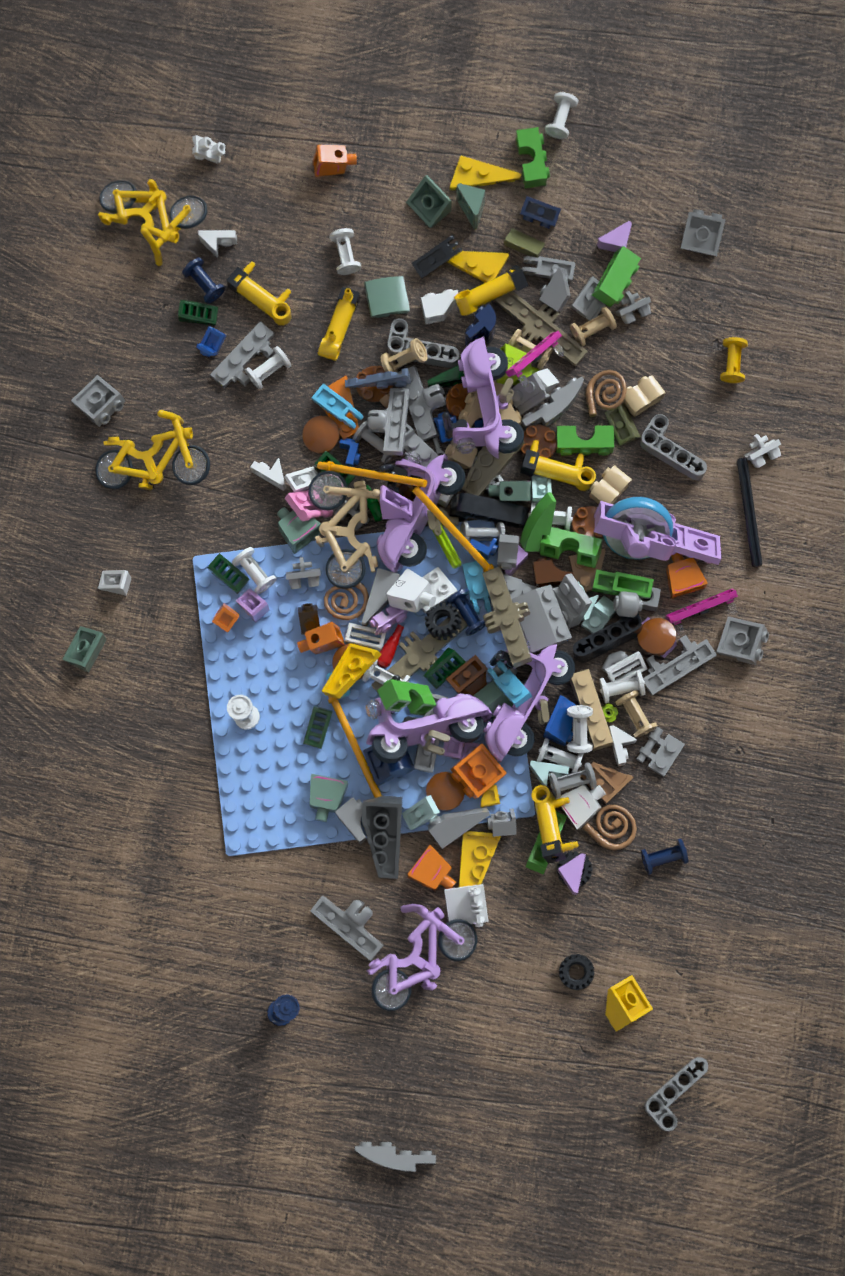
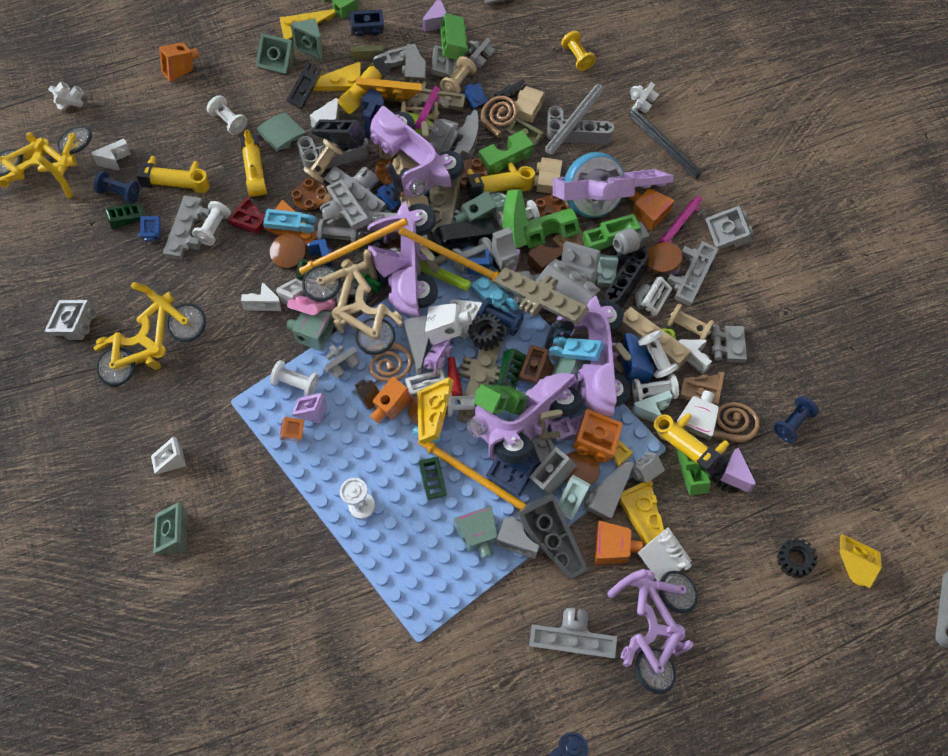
camera: 35 degrees left, 15 degrees down
(220, 558) = (270, 401): dark green slope -> none
(304, 377) = (247, 217): none -> dark red wing
(381, 380) = (315, 183): sand blue wing -> none
(417, 781) = (553, 471): none -> light grey brick
(434, 335) = (342, 132): none -> black slope
(447, 378) = (369, 160): dark green slope -> none
(503, 308) = (390, 89): none -> light orange wing
(572, 780) = (673, 406): light grey hose -> none
(597, 355) = (475, 95): none -> blue bracket
(622, 686) = (674, 298): white hose -> none
(636, 369) = (511, 90): none -> black pin
(671, 442) = (574, 119): none -> light grey axle

